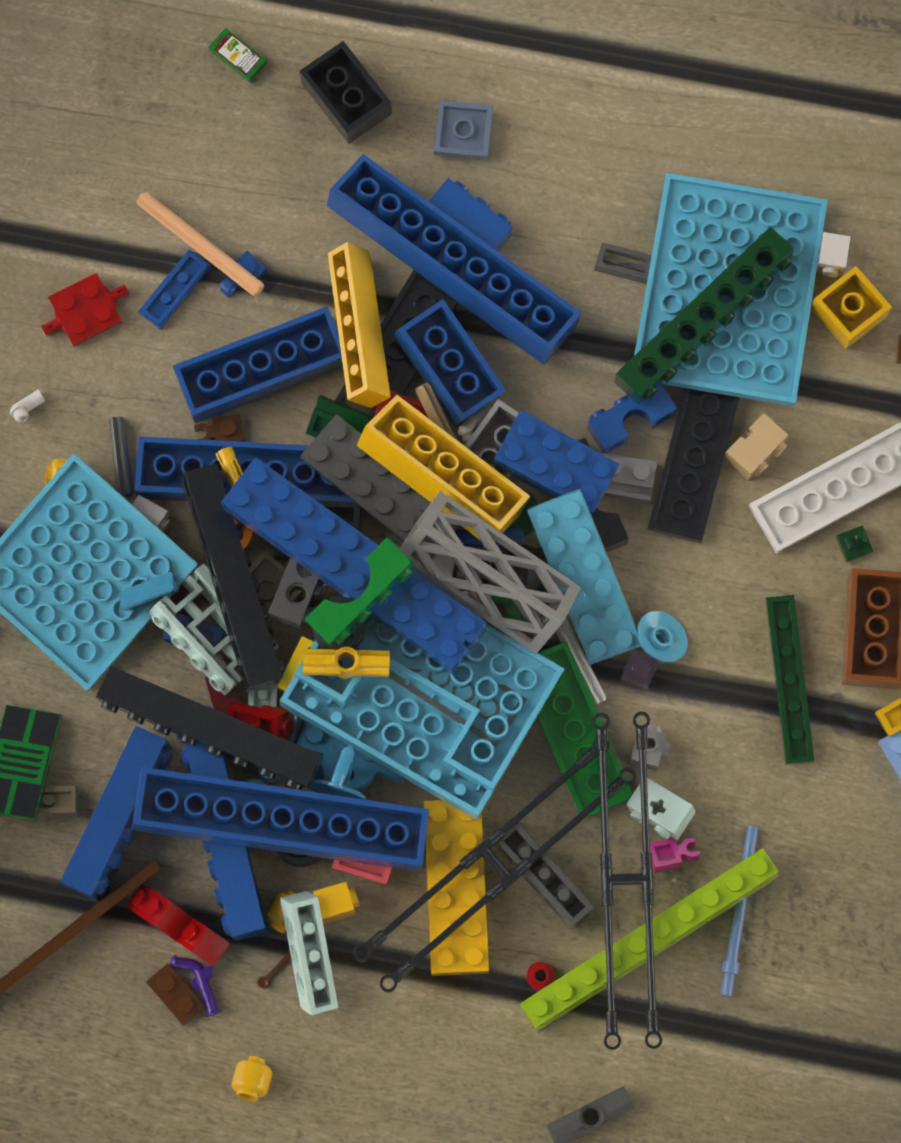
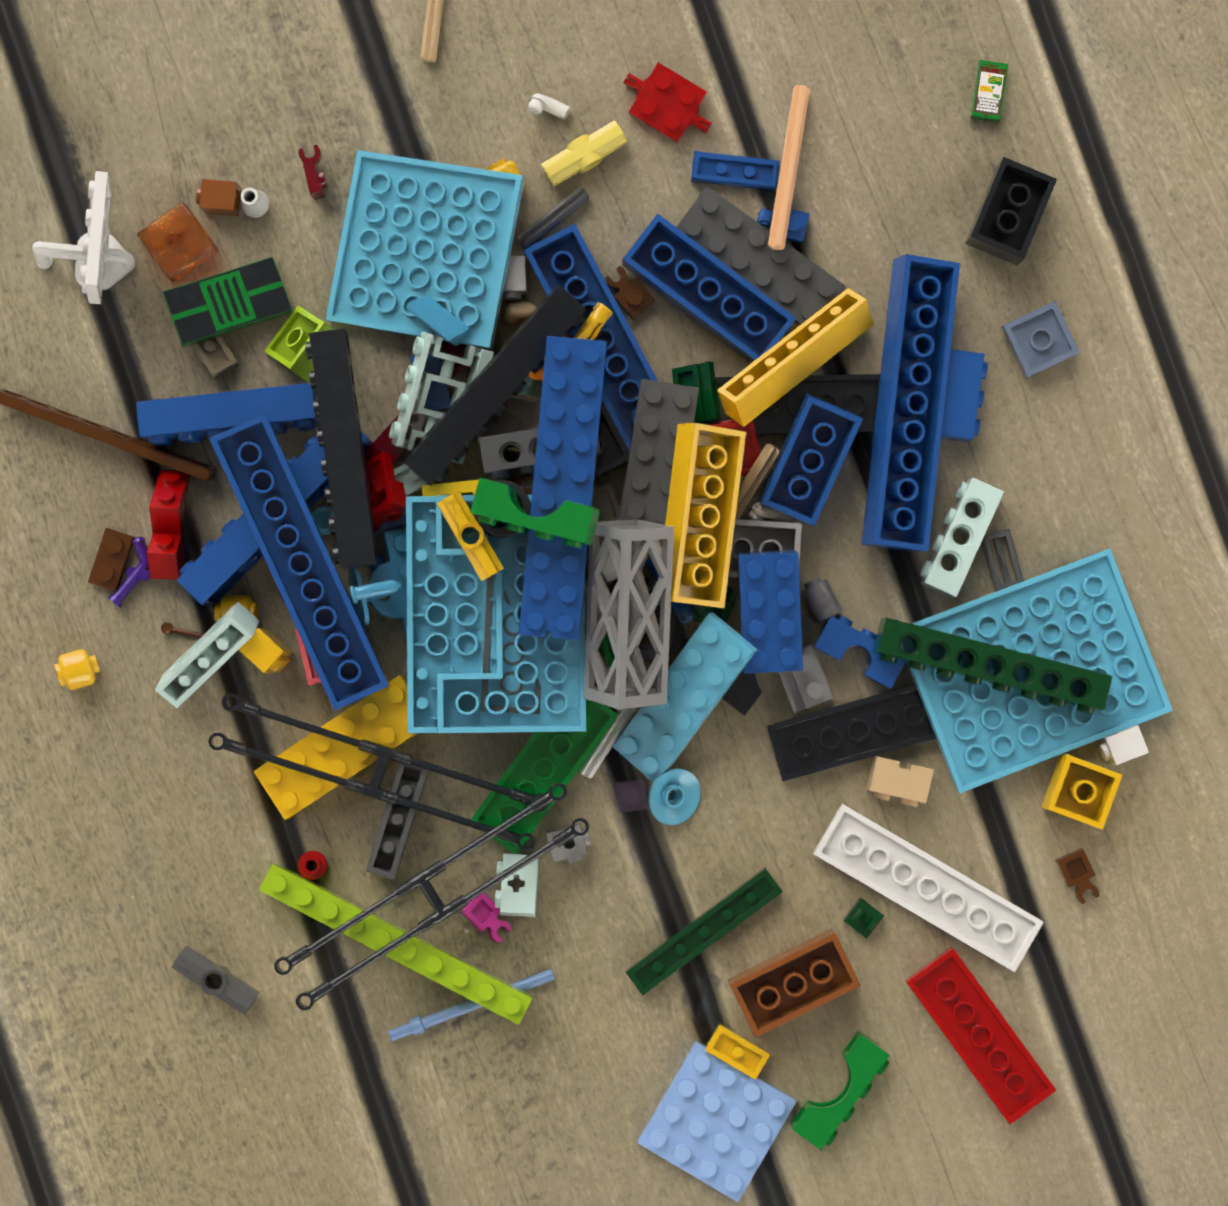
camera: 60 degrees right, 10 degrees up
(84, 399) = (584, 153): none -> light yellow piece
(93, 727) = (290, 340): none -> lime slope
(180, 526) = (518, 310): none -> tan arm
(243, 315) = (743, 246): none -> dark grey plate
(568, 246) = (986, 500): none -> light aqua brick
(570, 422) = (821, 599): none -> flat silver brick

